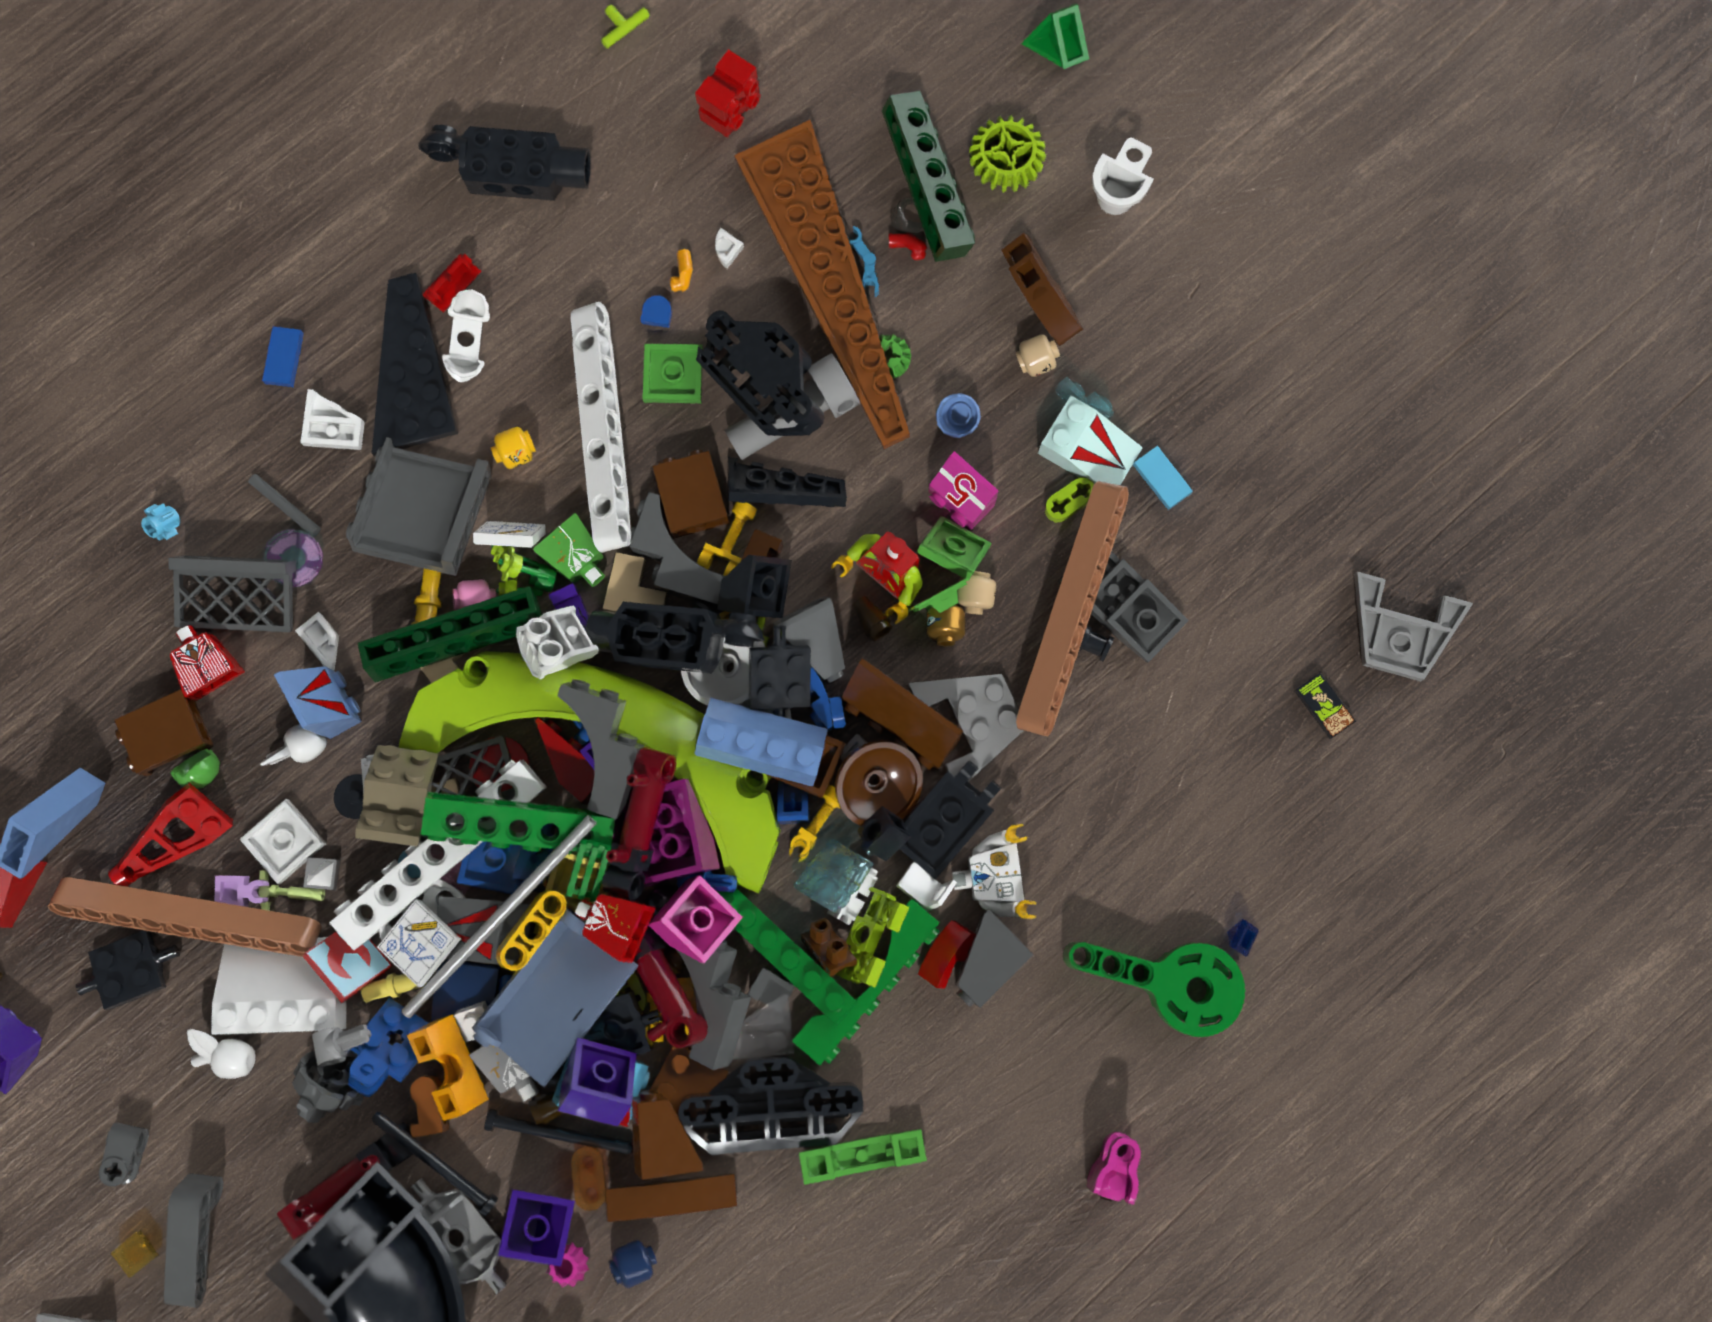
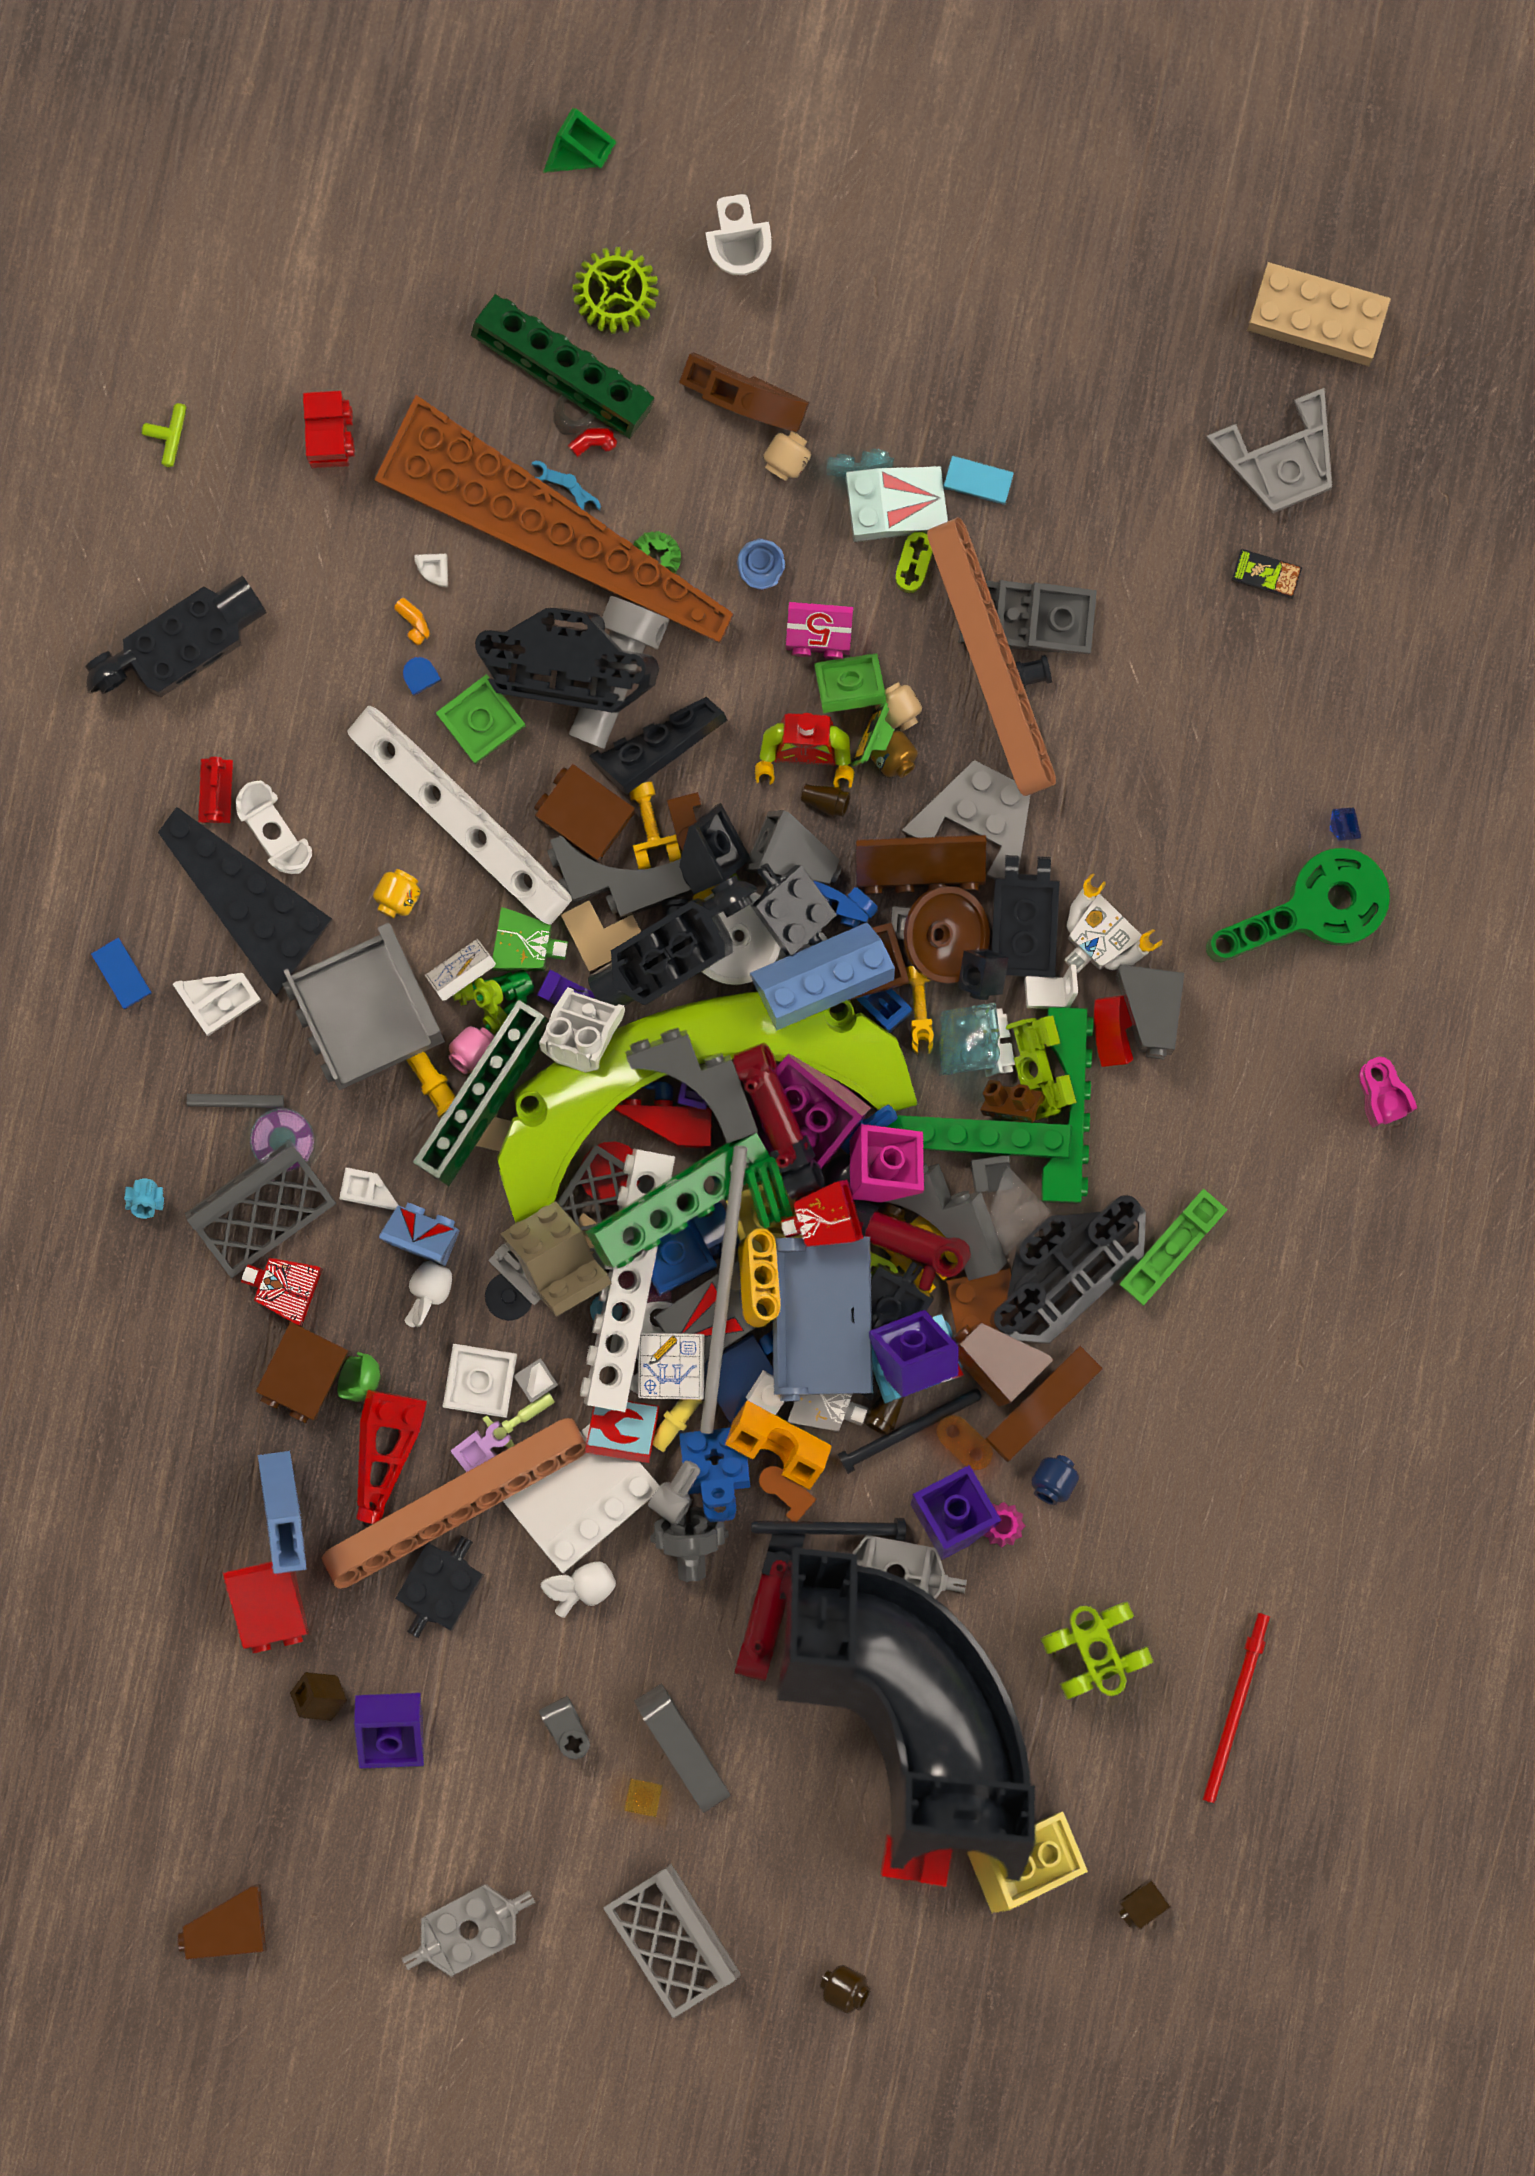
camera: 40 degrees left, 5 degrees up
(1509, 547) = (1318, 314): none -> tan brick

